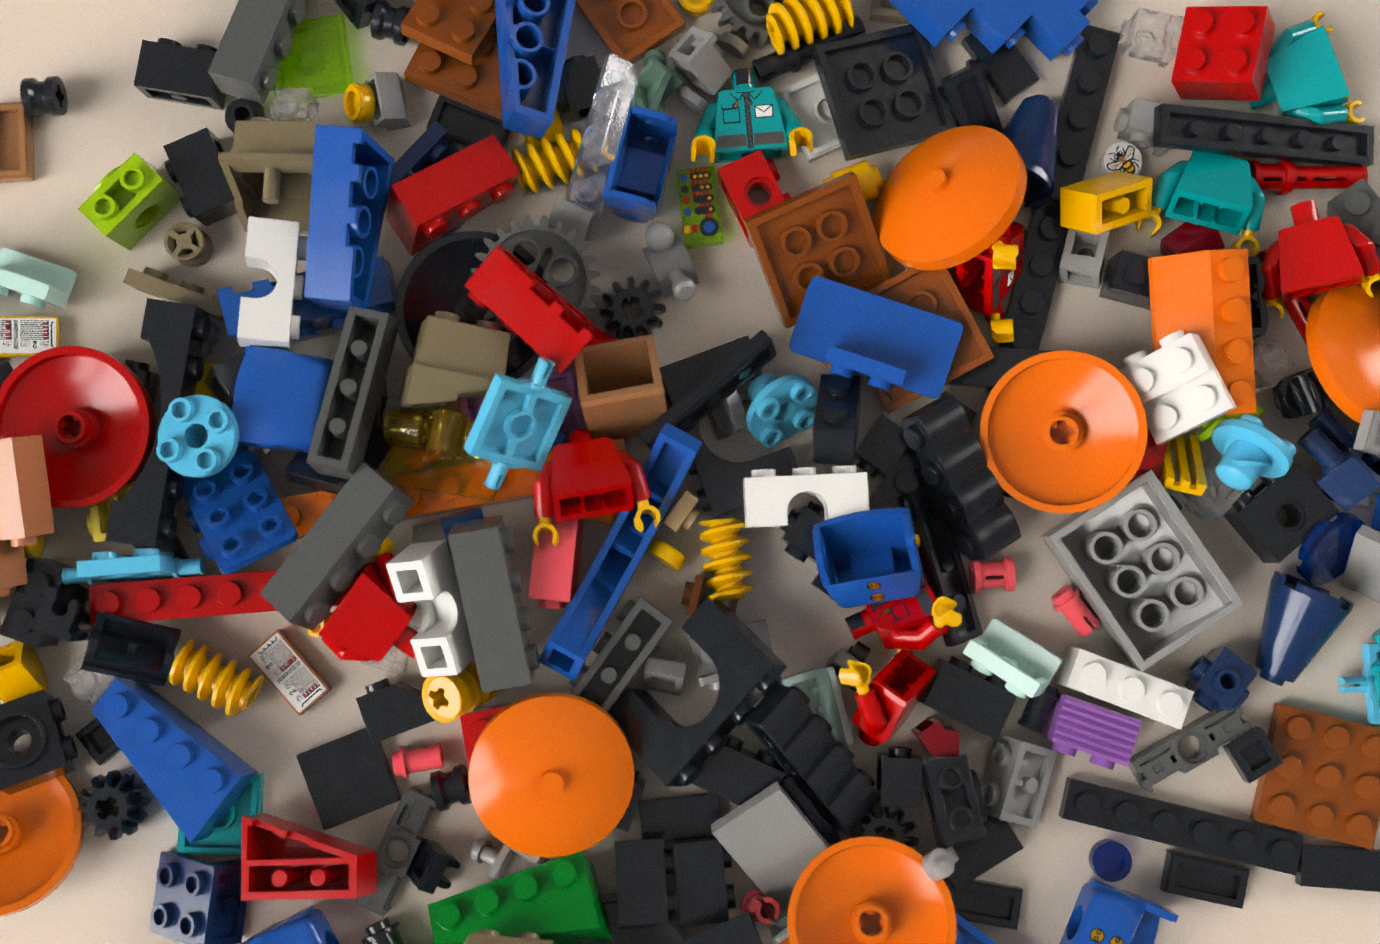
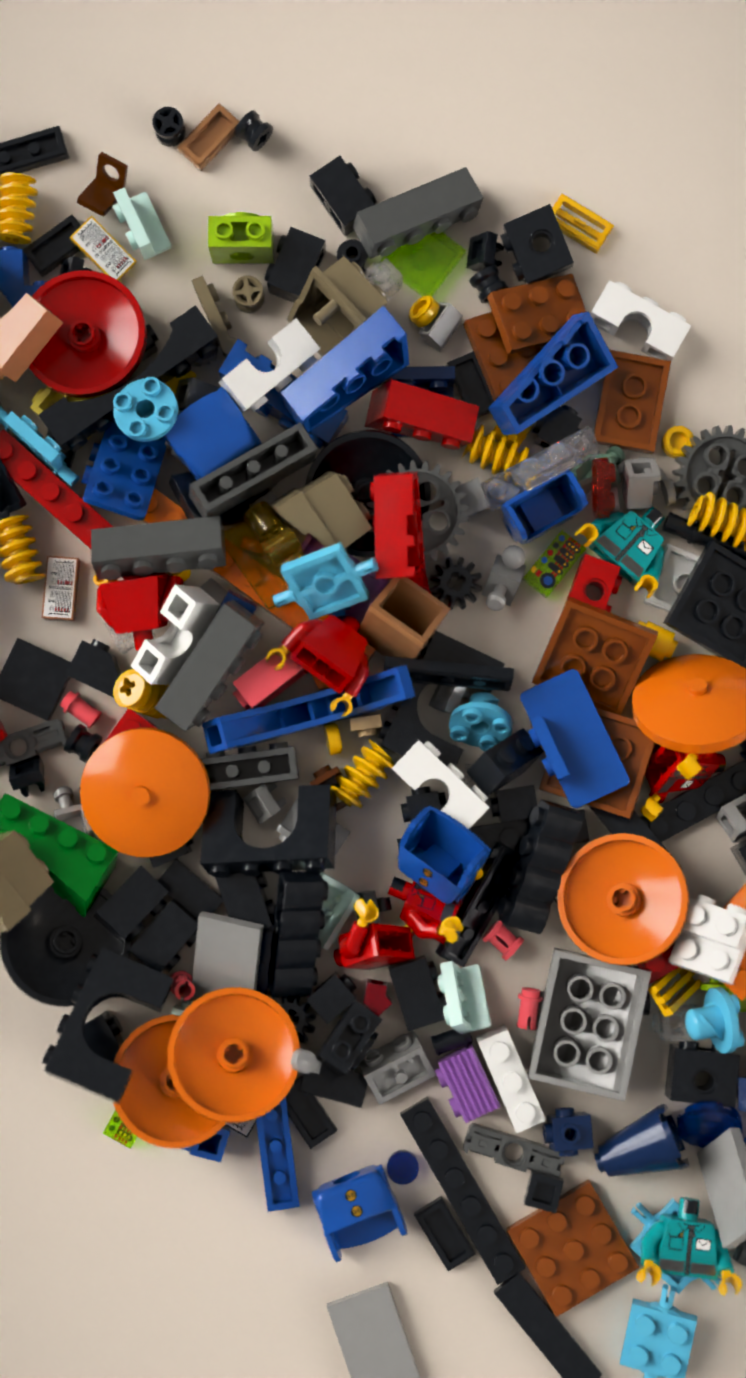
camera: 50 degrees right, 0 degrees up
(682, 105) = (602, 498): none -> clear red plate

